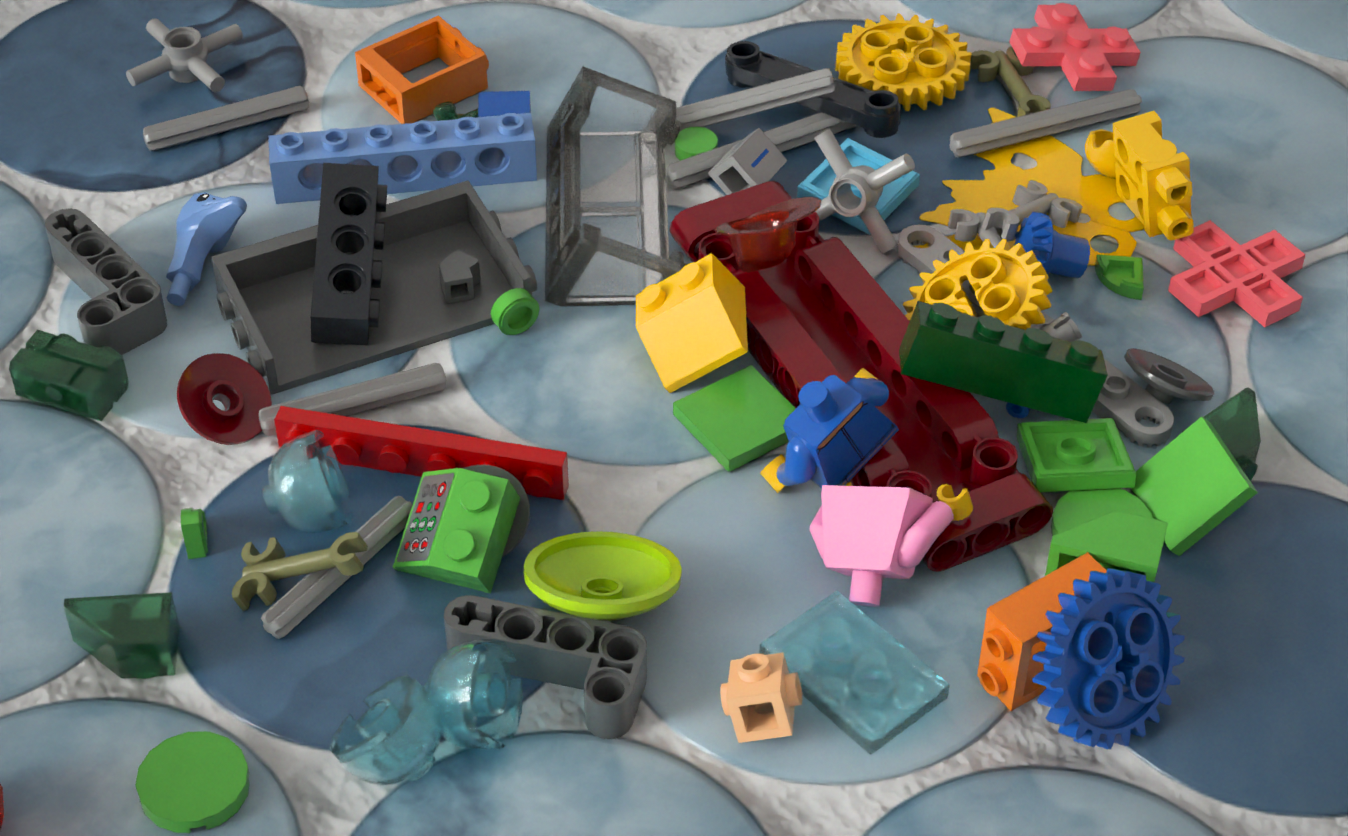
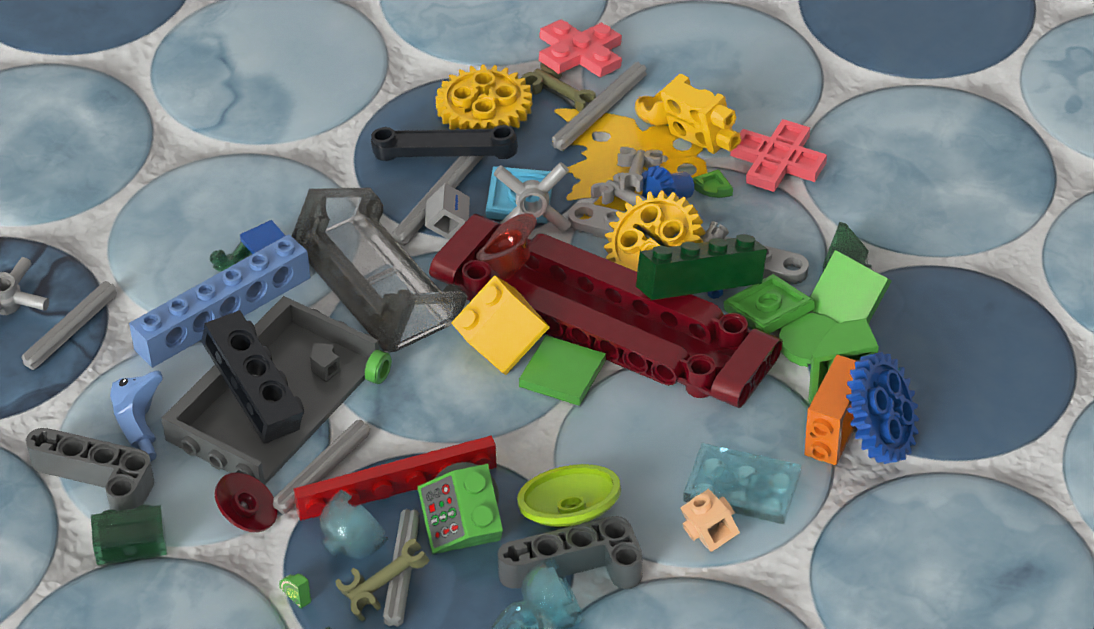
camera: 30 degrees left, 0 degrees up
(384, 62) = (172, 258): orange window -> none
(694, 141) = (395, 210): bright green tile -> none
(756, 99) = (420, 163): light grey axle -> none
(832, 432) = (641, 354): blue torso -> none
(881, 532) = (703, 398): bright pink torso -> none
(1167, 378) = (787, 237): dark grey dish -> none

